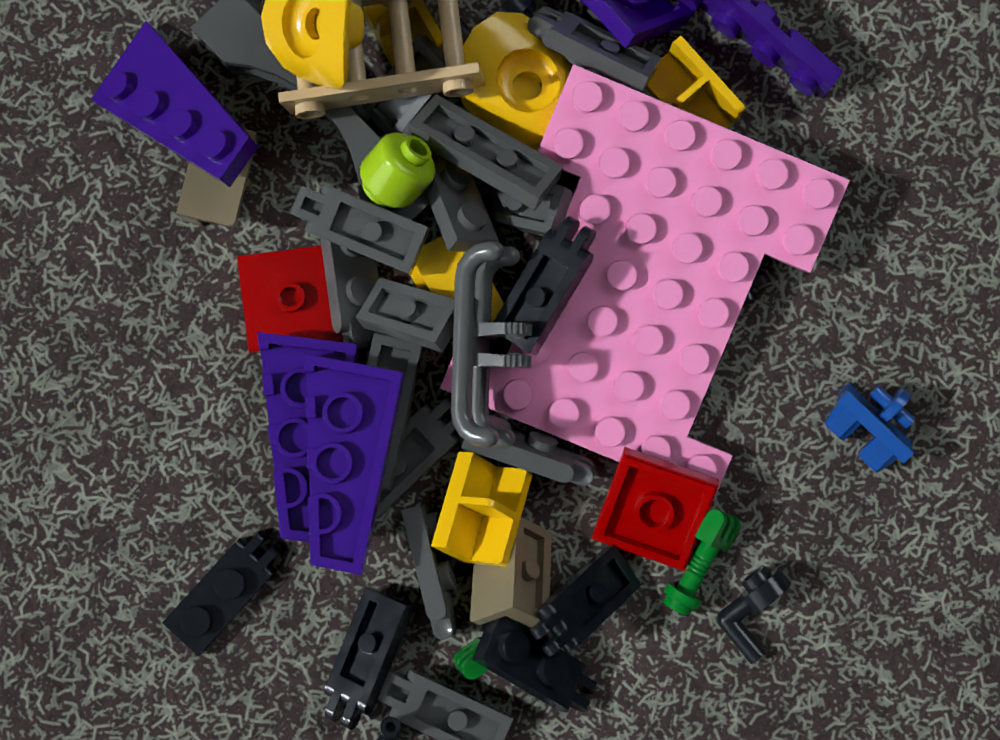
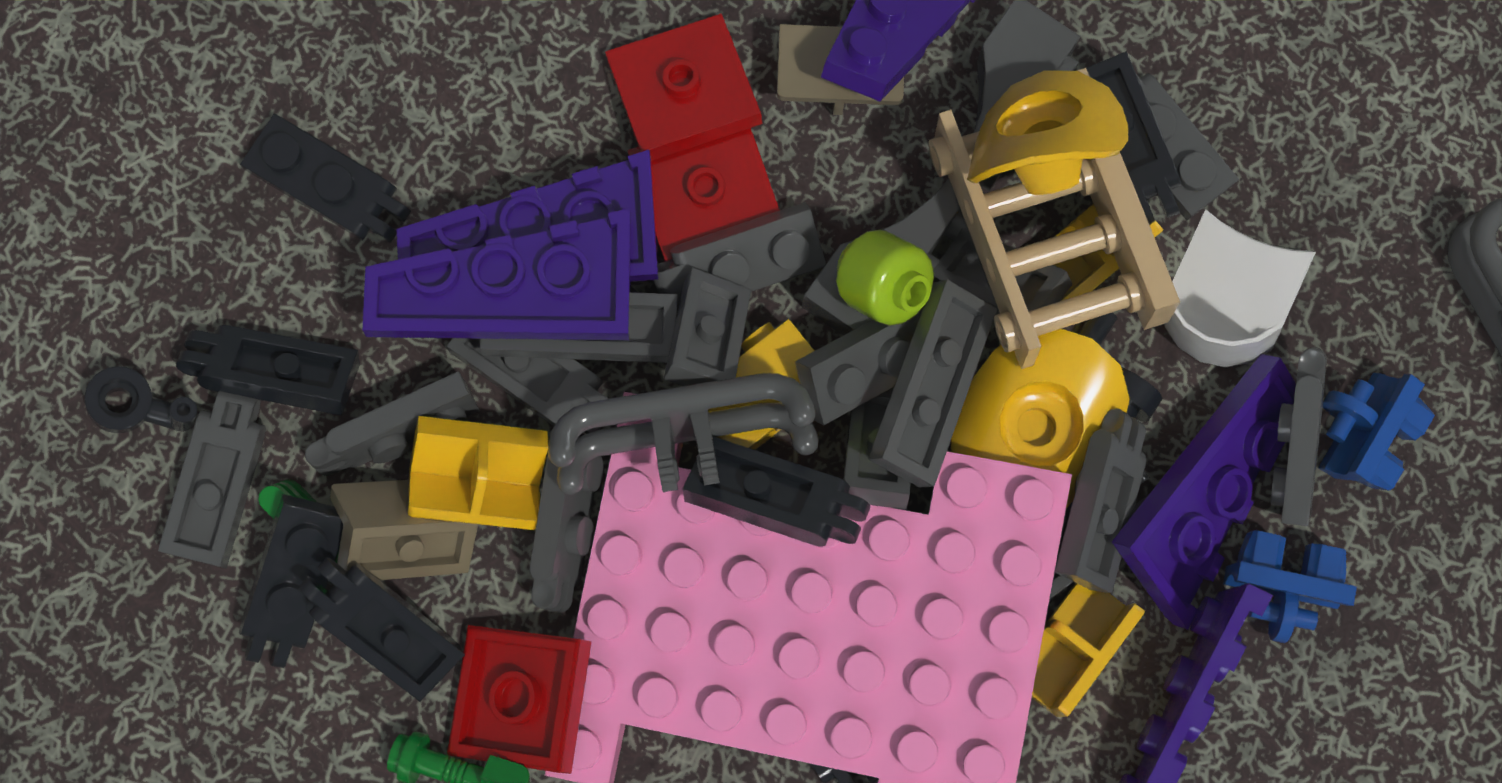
camera: 80 degrees right, 5 degrees down
(207, 299) = (683, 87): none -> red plate
(361, 227) = (805, 250): dark grey hinge -> none

